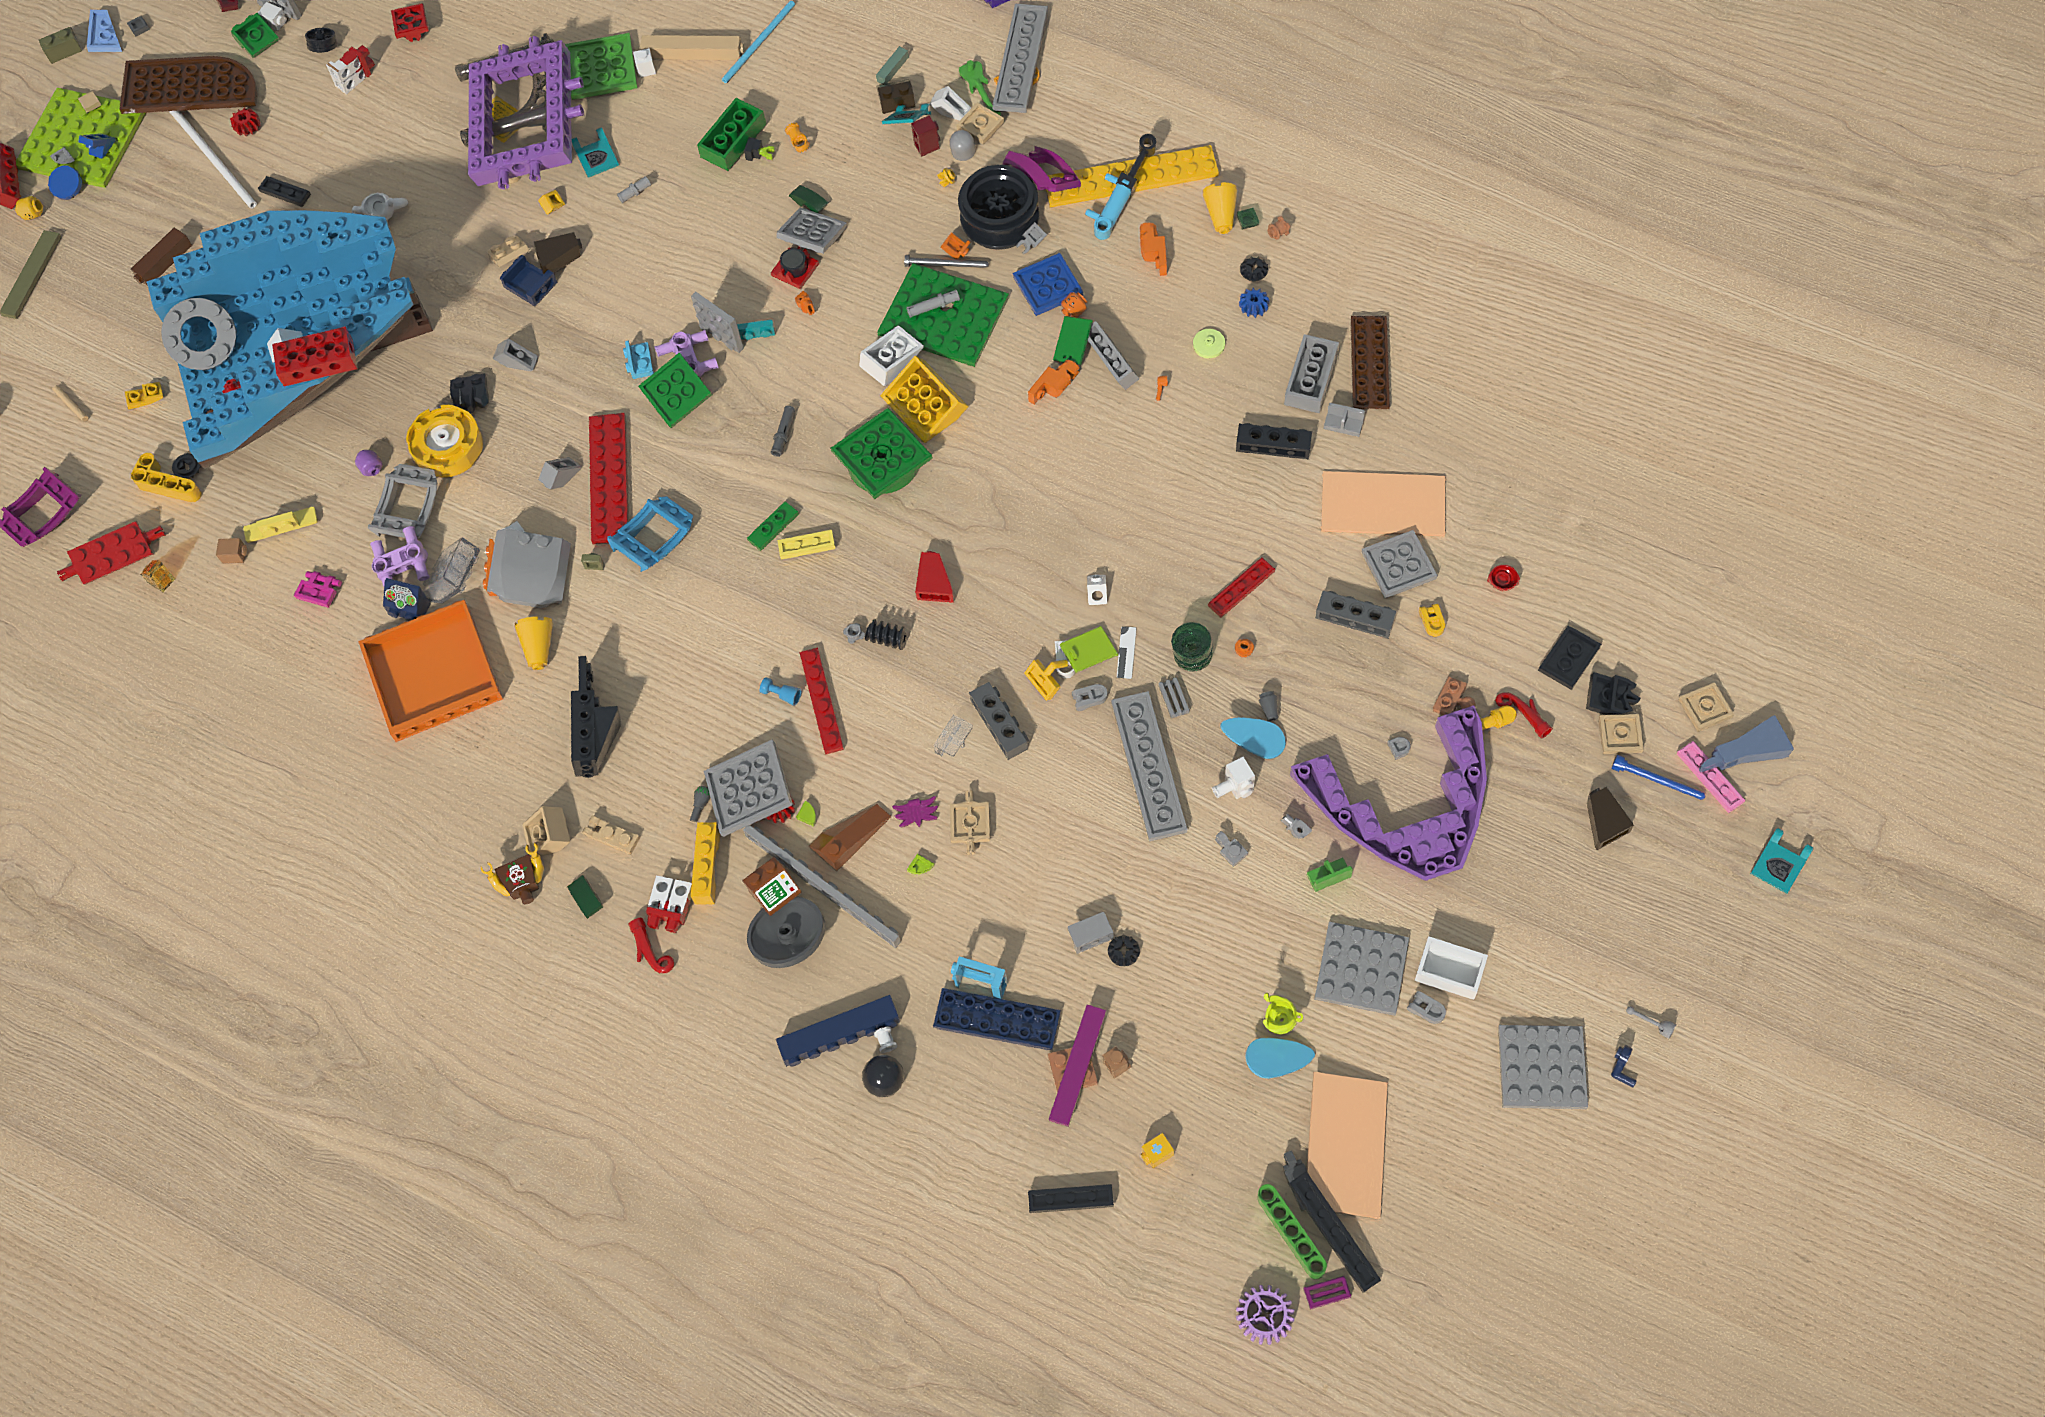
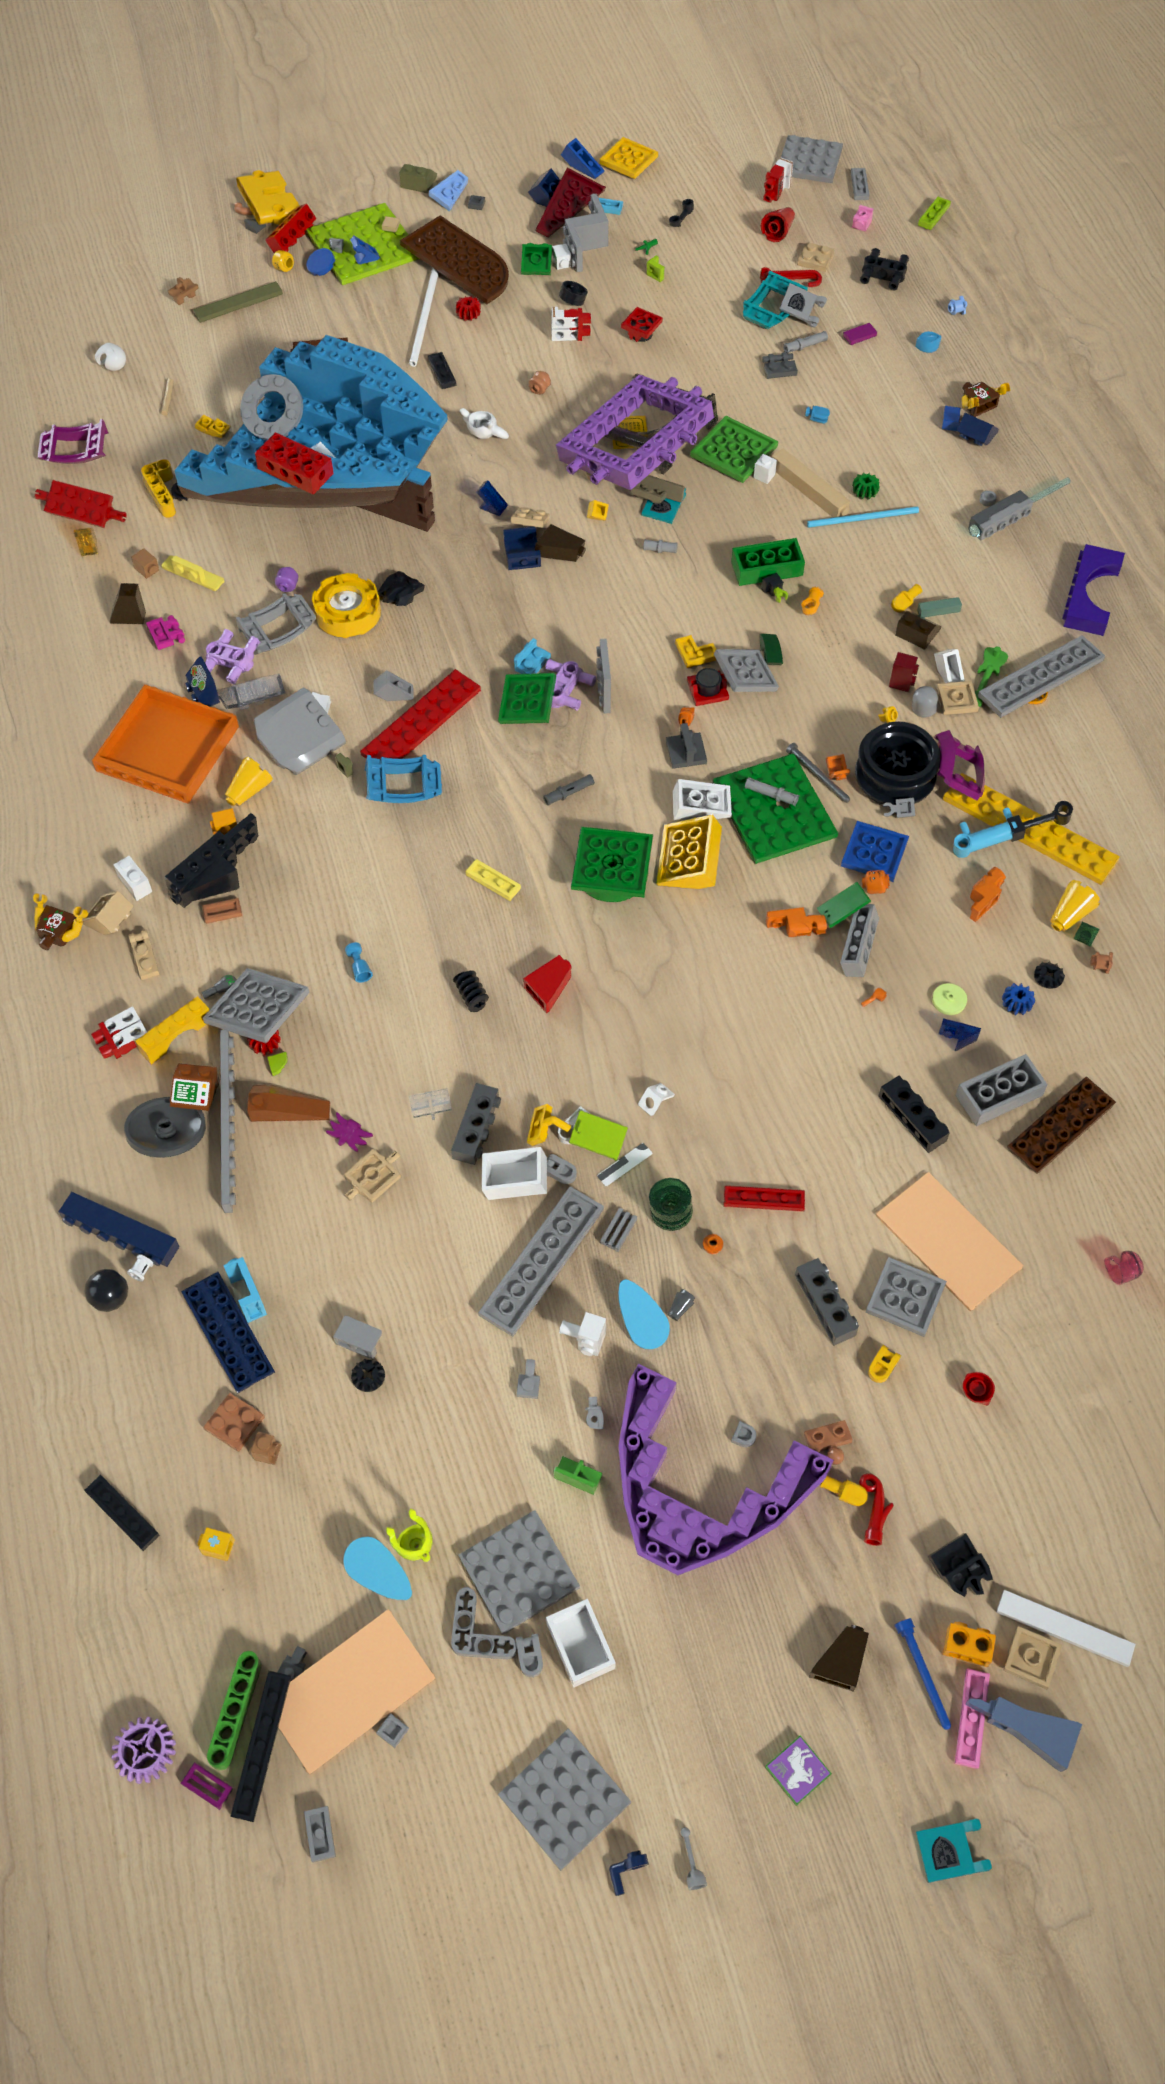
camera: 40 degrees right, 5 degrees down
(263, 595) = (128, 605): none -> dark brown slope
(382, 136) = (539, 382): none -> nougat piece
(458, 262) = (492, 499): none -> clear blue slope
(514, 356) = (455, 590): light grey slope -> none
(534, 789) = (132, 878): none -> white brick
(561, 685) = (223, 821): none -> light orange brick
(584, 145) = (658, 490): none -> dark tan bracket
(585, 896) = (78, 978): dark green slope -> none
(630, 750) = (222, 910): none -> nougat tile
(644, 947) = (74, 1049): red plant -> none
(735, 15) = (866, 485): none -> green gear
(756, 252) = (692, 654): none -> yellow plate
(756, 329) = (631, 706): teal plate -> none
(772, 526) = (487, 847): green plate -> none
(821, 701) = (377, 995): red plate -> none
(832, 326) = (686, 748): none -> dark grey bracket
(851, 629) = (453, 965): light grey plate -> none
(861, 80) = (905, 598): none -> yellow arm
(902, 116) = (905, 646): teal flag -> none
(920, 865) = (306, 1172): lime tile -> none
(1068, 726) = (514, 1173): none -> white piece
(1077, 1065) = (235, 1421): magenta tile -> none
(1243, 358) = (962, 1032): none -> clear blue slope
(1344, 419) = (989, 1149): light grey panel -> none
(1383, 1036) = (474, 1639): none -> light grey beam
(1398, 1139) = (392, 1730): none -> light grey tile
(1429, 1242) = (319, 1834): none -> light grey plate
(1509, 412) = (1126, 1269): none -> clear pink helmet
(1569, 657) = (963, 1503): black tile -> none
(1620, 734) = (933, 1605): tan plate -> none
(1651, 908) = (798, 1770): none -> tile
(1667, 738) = (968, 1651): none -> light orange brick
(1704, 672) = (1066, 1628): none -> white tile

